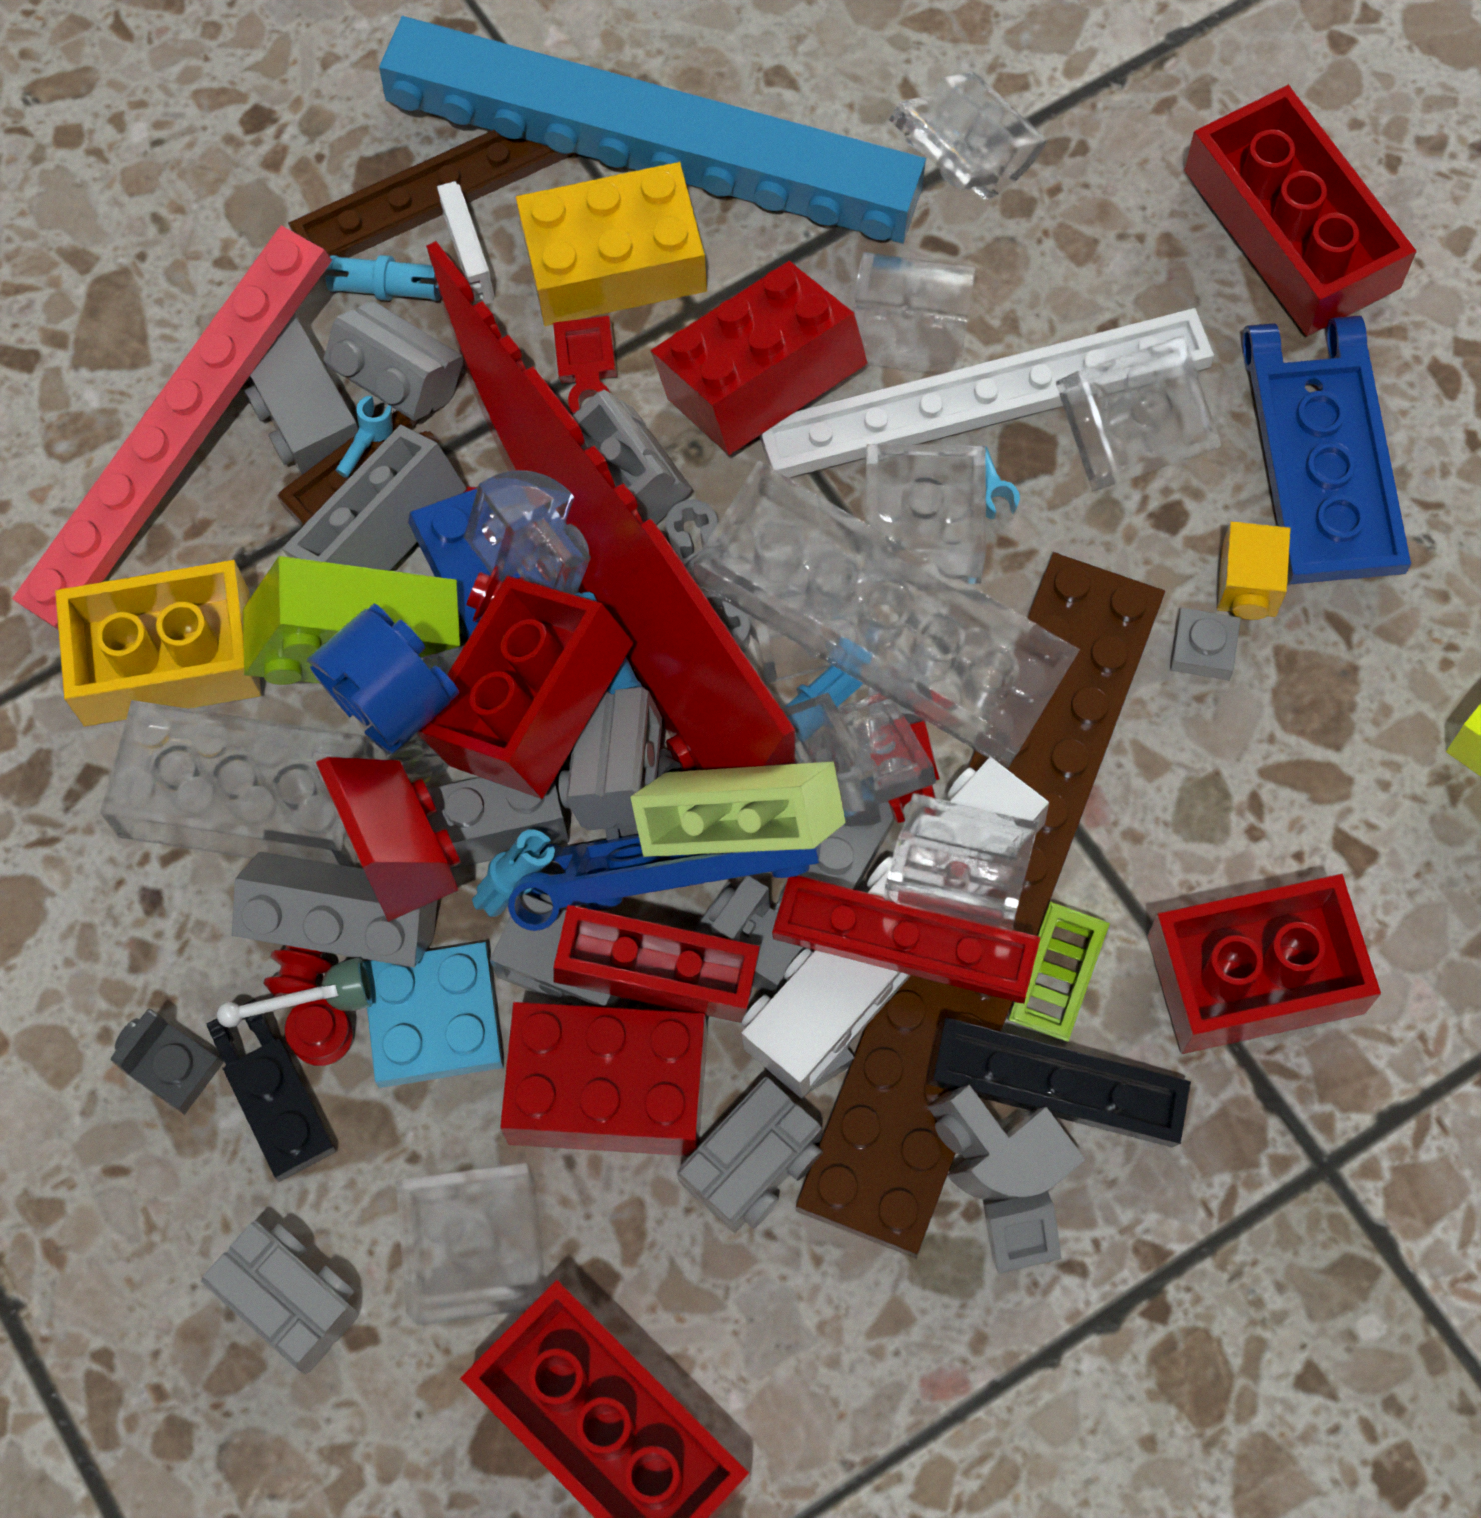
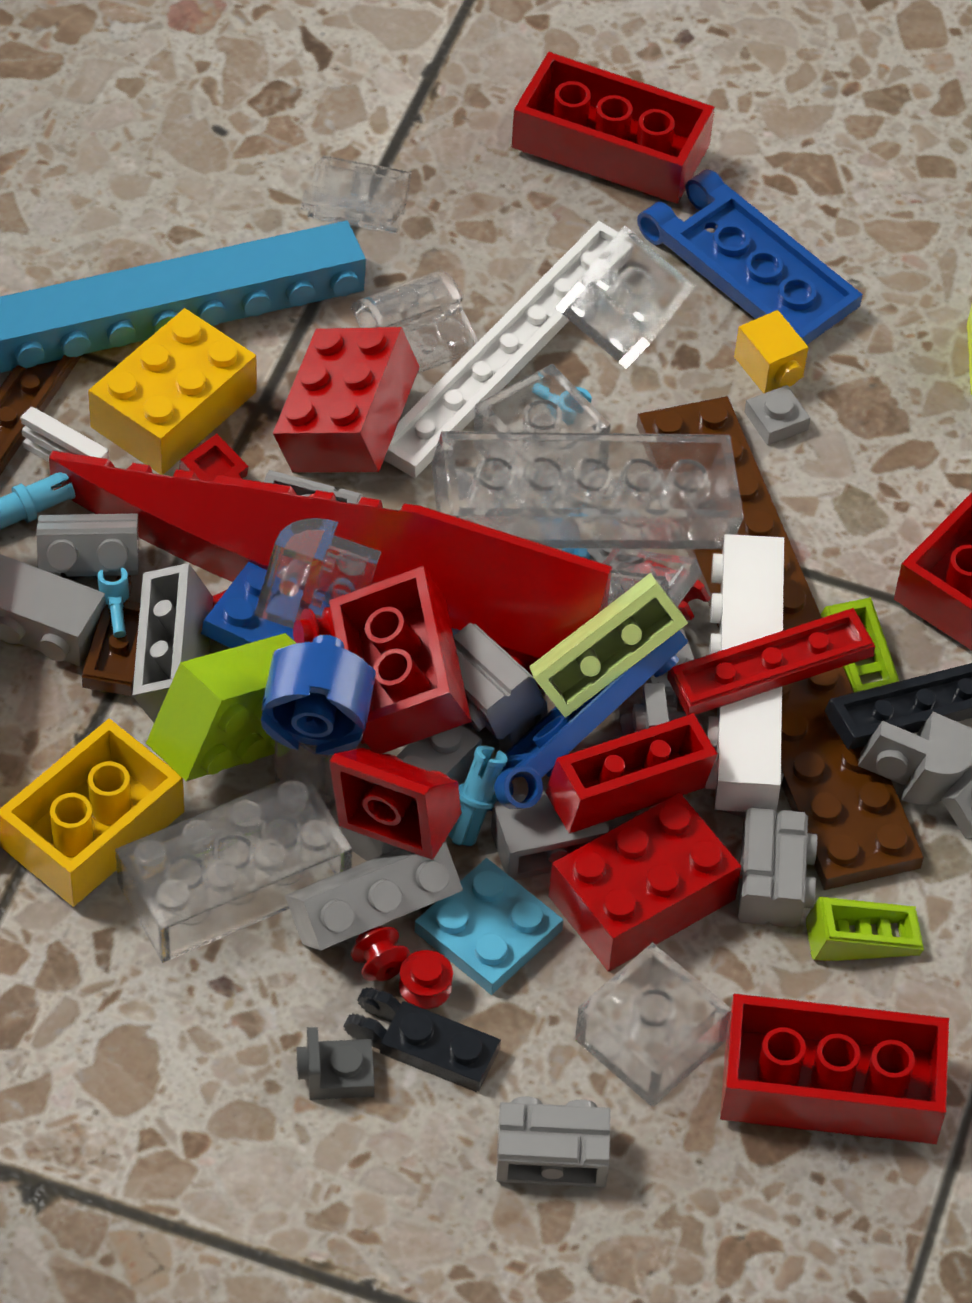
camera: 45 degrees left, 15 degrees down
(343, 987) = (427, 931): hinge -> none
(777, 1310) = (831, 935): none -> lime slope
(961, 862) = (772, 592): clear brick -> none

